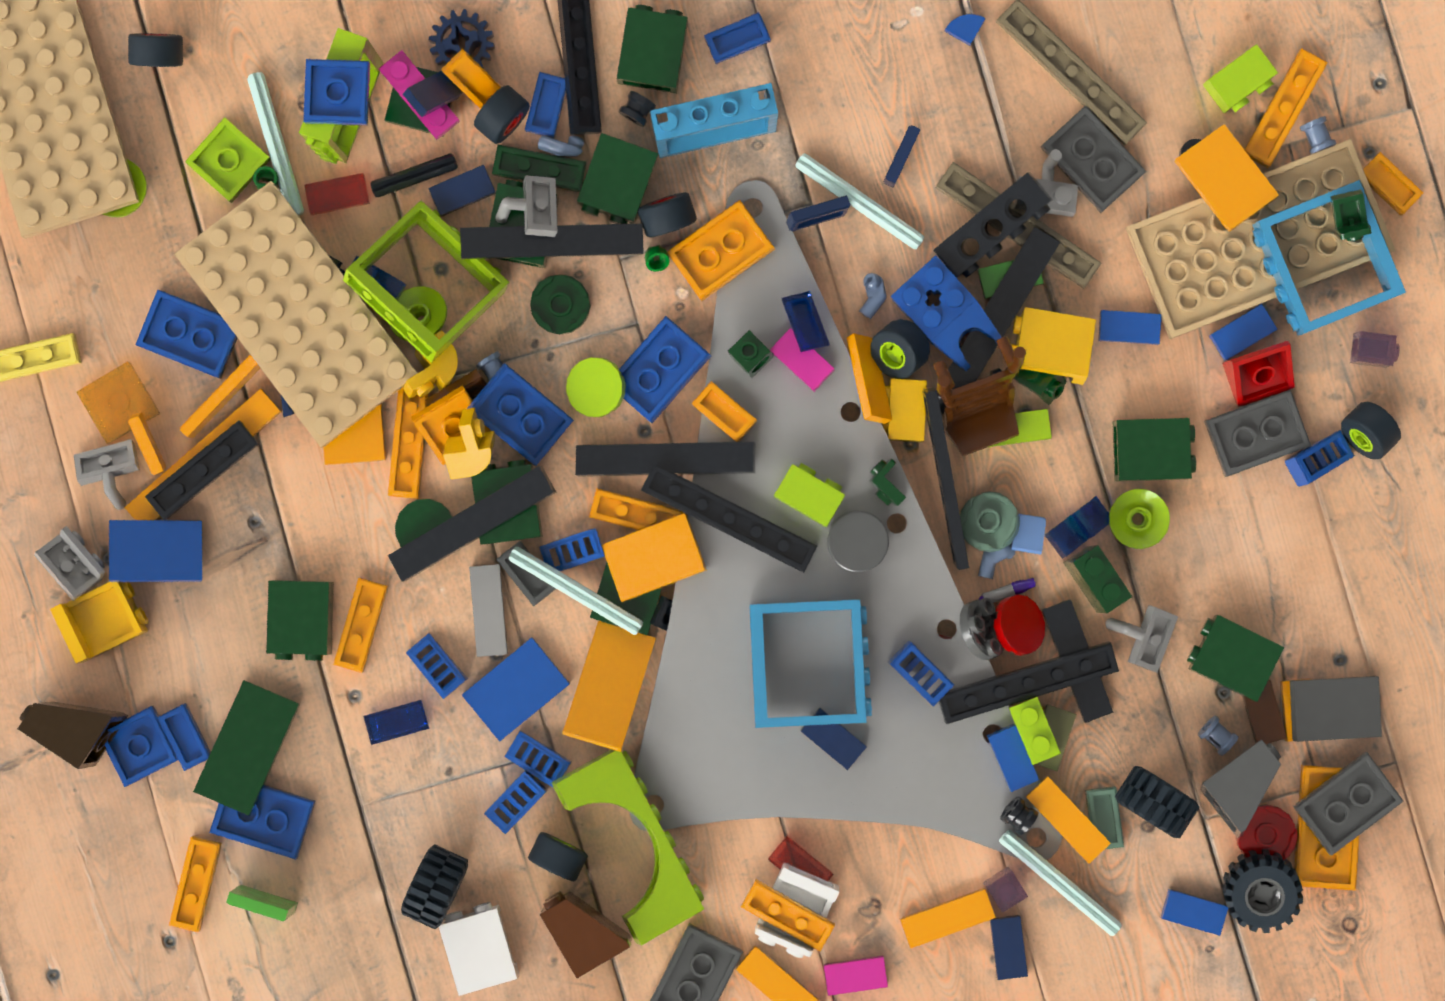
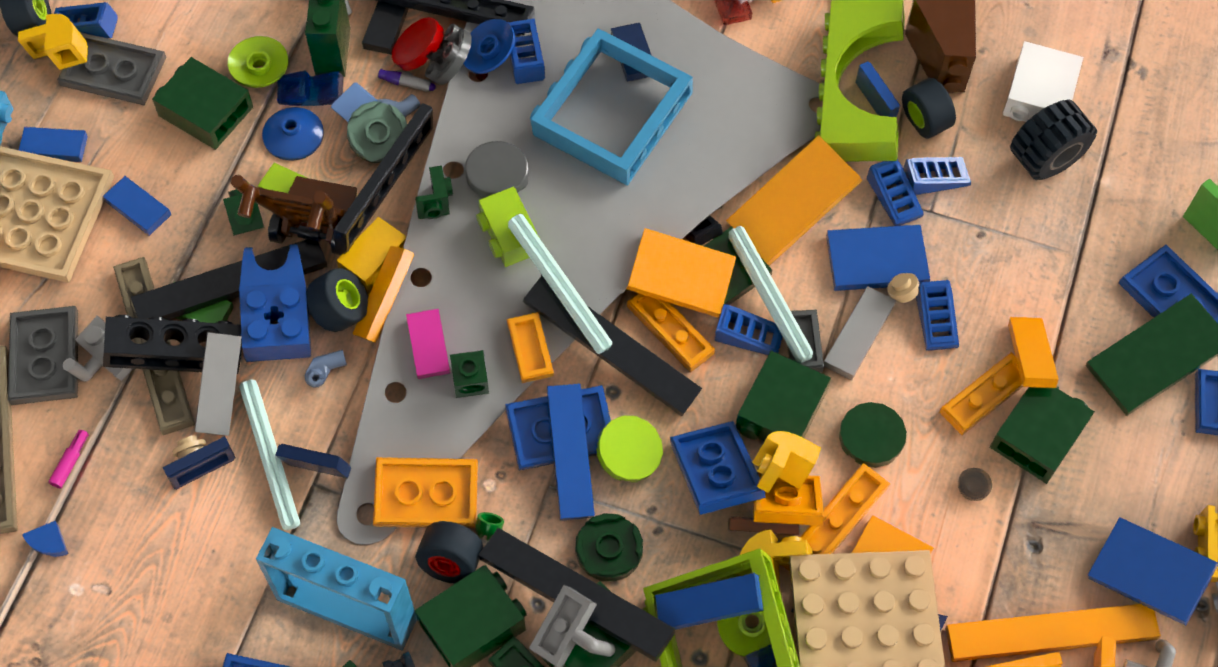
camera: 145 degrees left, 25 degrees down
(202, 470) = (1060, 617): black tile -> none
(324, 538) = (974, 484): none -> clear smoke plate
(342, 676) = (1033, 352): none -> light orange tile
(396, 722) = (1004, 295): clear blue tile -> none
(449, 293) = (710, 602): none -> blue tile
(472, 523) = (827, 396): black tile -> none
(476, 668) = (903, 287): none -> tan plate
(490, 365) = (713, 528): sand blue bush -> none
(610, 846) = (876, 91): none -> blue tile
(636, 352) = (570, 452): none -> blue tile
(729, 518) = (593, 259): black tile -> none
(732, 469) = (559, 283): none -> light aqua axle
(805, 321) = (399, 369): clear blue tile -> none
(918, 161) = (187, 446): none -> tan plate
(934, 219) = (218, 384): none -> light grey tile
(961, 660) = (490, 46): none -> blue dish
(1002, 94) = (68, 460): none -> dark pink pin
(1046, 481) = (293, 143): none -> blue dish
(1055, 343) = (209, 223): yellow panel -> none
(1260, 373) = (65, 107): red slope -> none
(1314, 423) = (57, 40): none -> yellow brick

